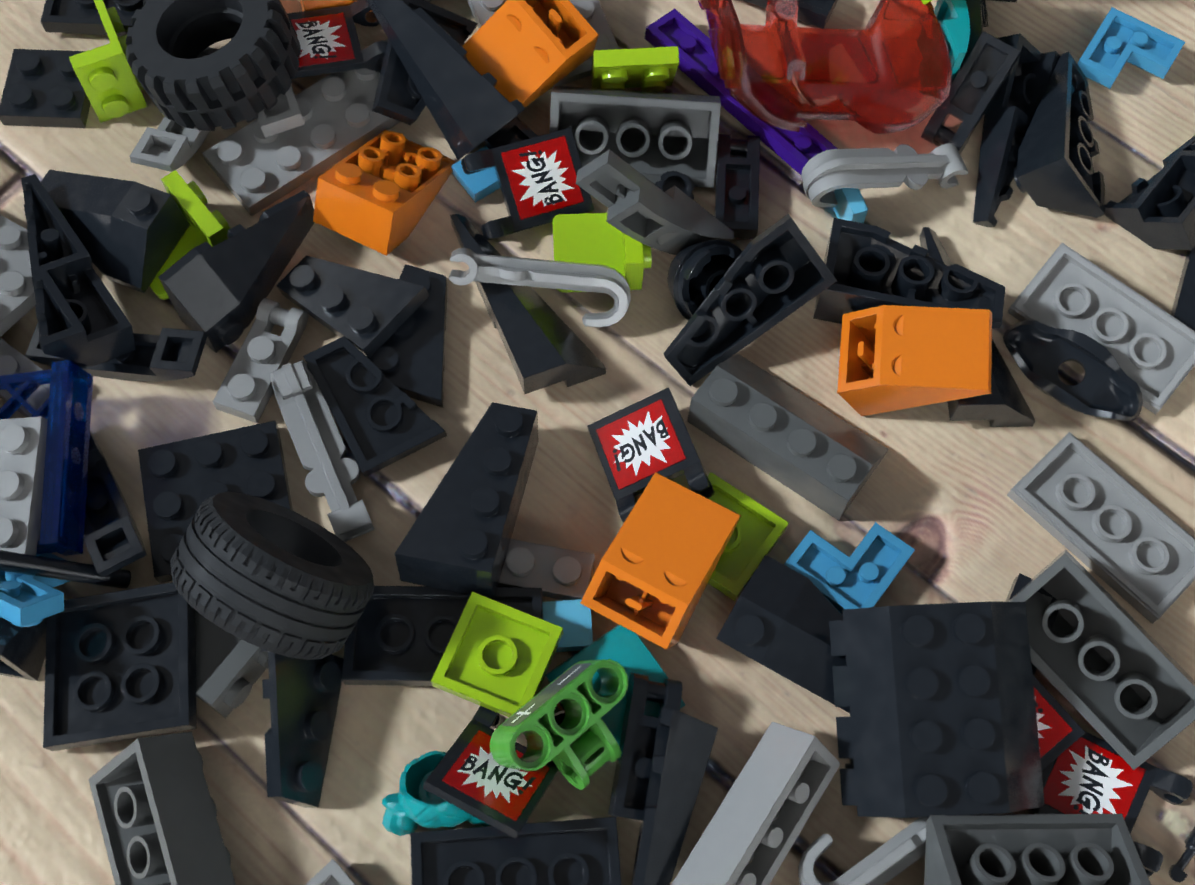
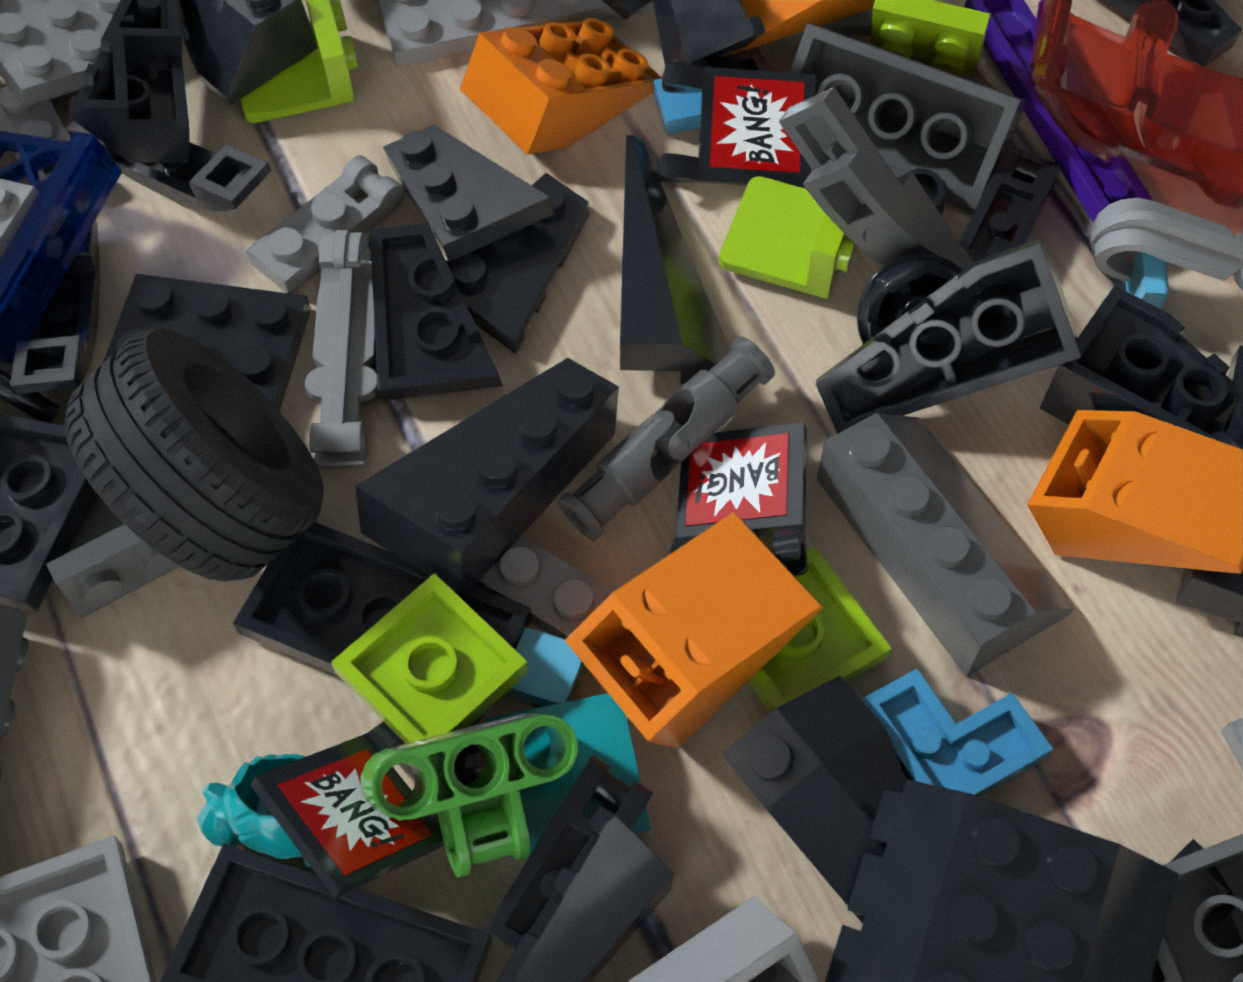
camera: 25 degrees right, 5 degrees down
(225, 283) = (324, 115): black wedge -> none
(302, 724) = (158, 655): black wing -> none
(547, 275) = (710, 236): light grey piece -> none
(578, 437) = (673, 431): none -> dark grey piece

